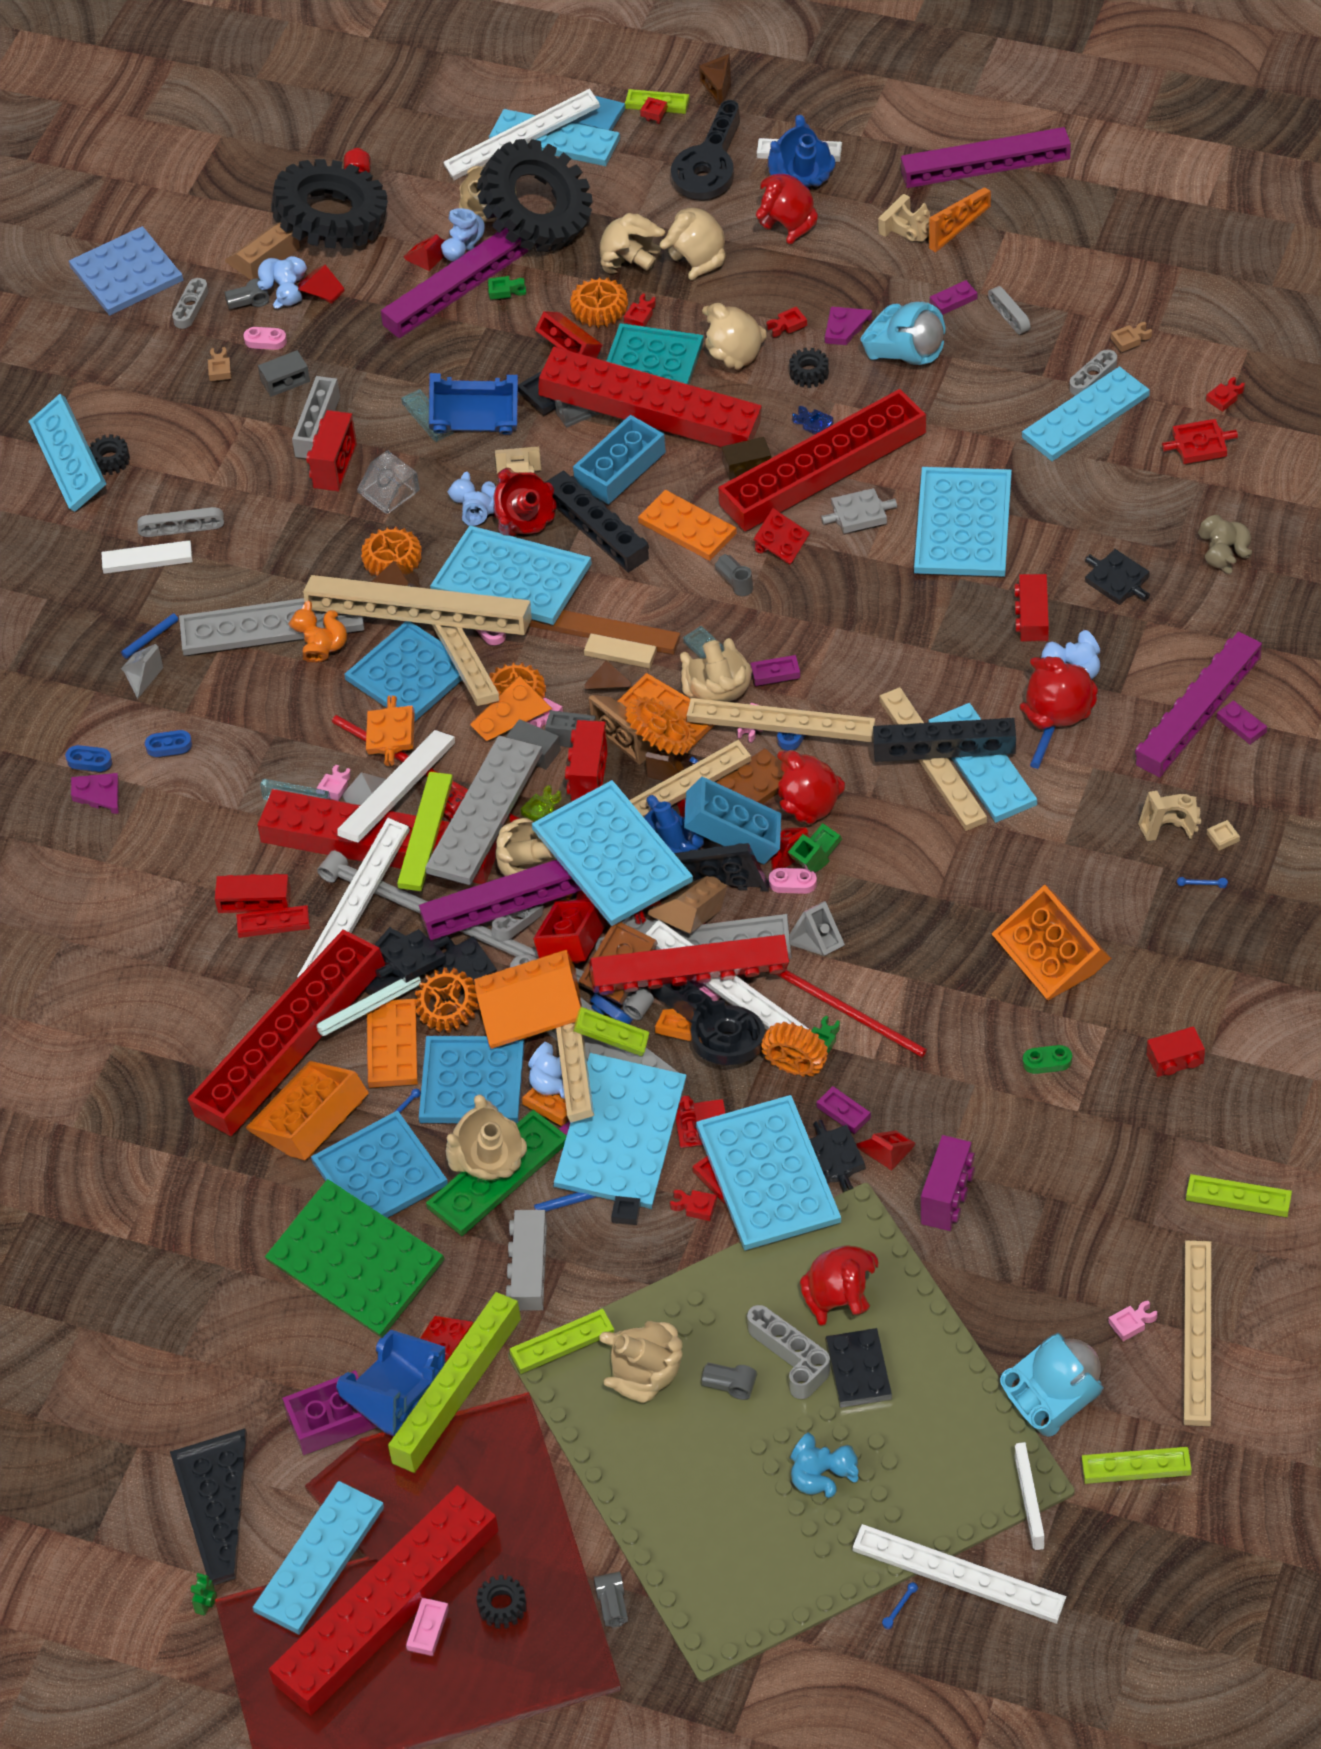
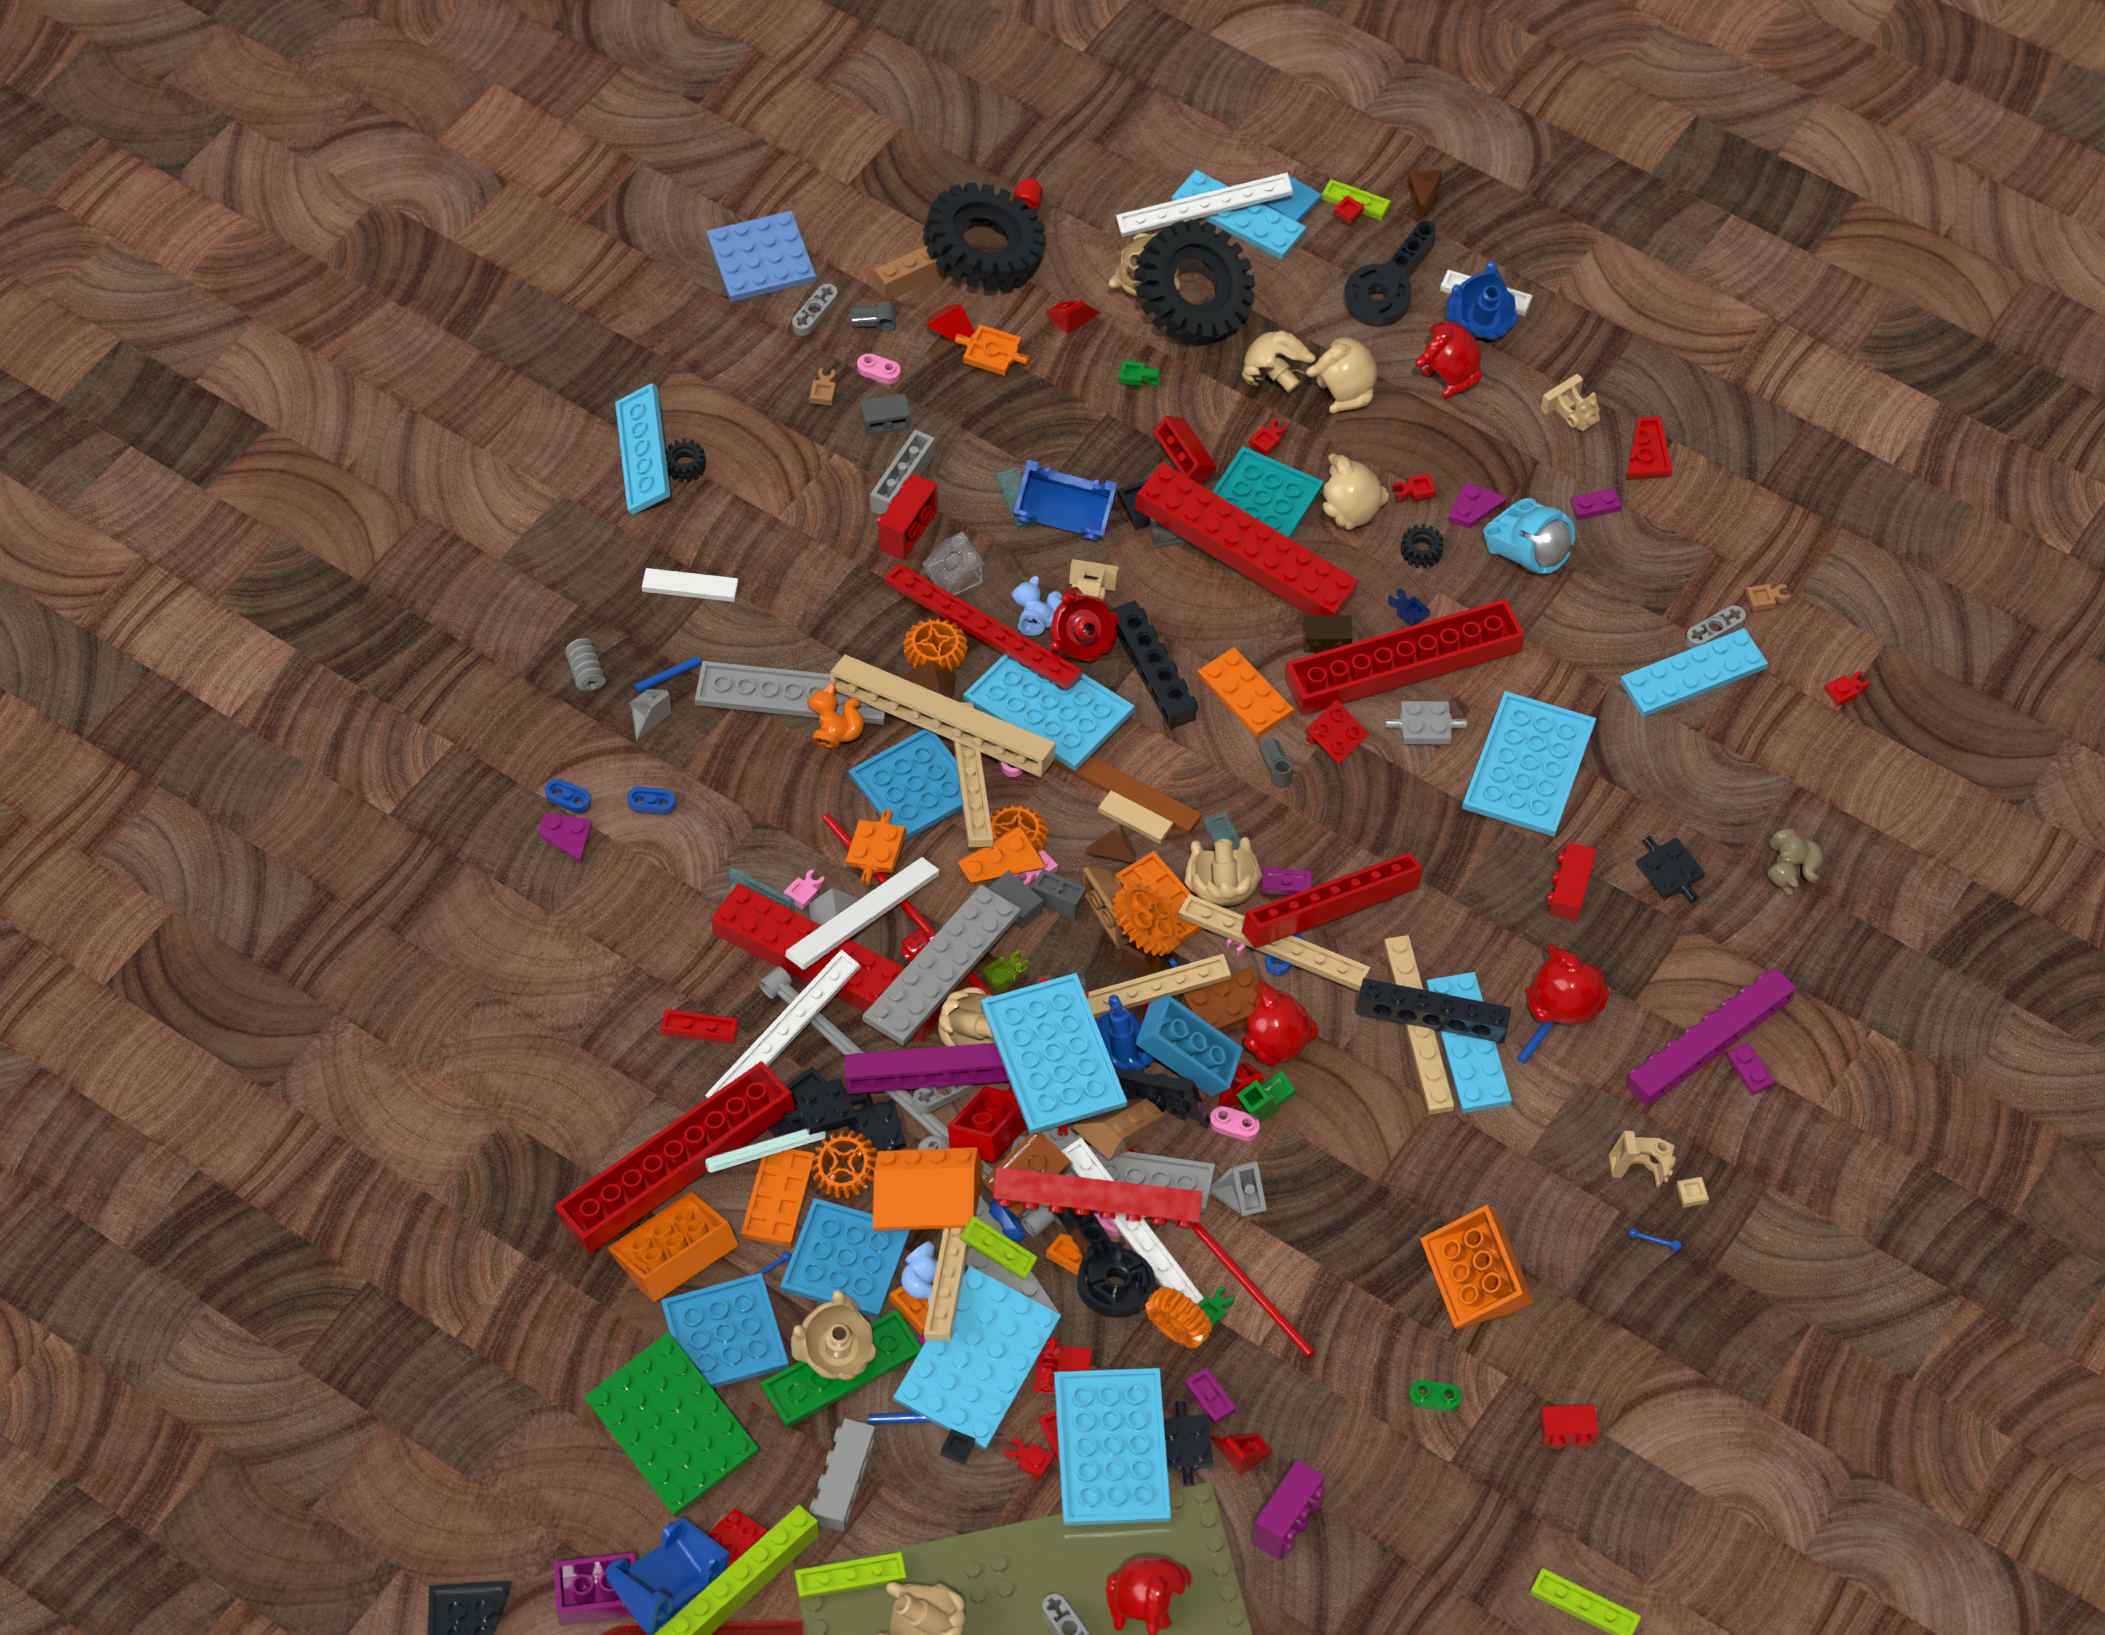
camera: 10 degrees right, 5 degrees up
(70, 645) = (585, 665): none -> light grey piece
(180, 519) = (758, 557): light grey beam -> none
(252, 893) = (686, 990): red brick -> none
(285, 274) = (918, 304): light blue animal -> none
(363, 297) = (992, 350): none -> orange plate
(425, 831) = (875, 973): lime tile -> none
(431, 525) = (983, 627): none -> red plate
(451, 283) = (1082, 356): magenta brick -> none
(465, 233) = (1114, 304): light blue animal -> none
(586, 758) = (1063, 935): red brick -> none
(599, 302) = (1238, 425): orange gear -> none
(619, 459) = (1196, 601): dark azure brick -> none
(823, 670) = (1332, 900): none -> red brick
(956, 217) = (1625, 414): orange wing -> none
(985, 157) = (1676, 351): magenta brick -> none
(987, 243) = (1649, 450): none -> red wing
(1009, 310) = (1648, 533): light grey beam -> none
(1082, 653) = (1605, 949): light blue animal -> none
(1199, 441) = (1802, 736): red plate -> none

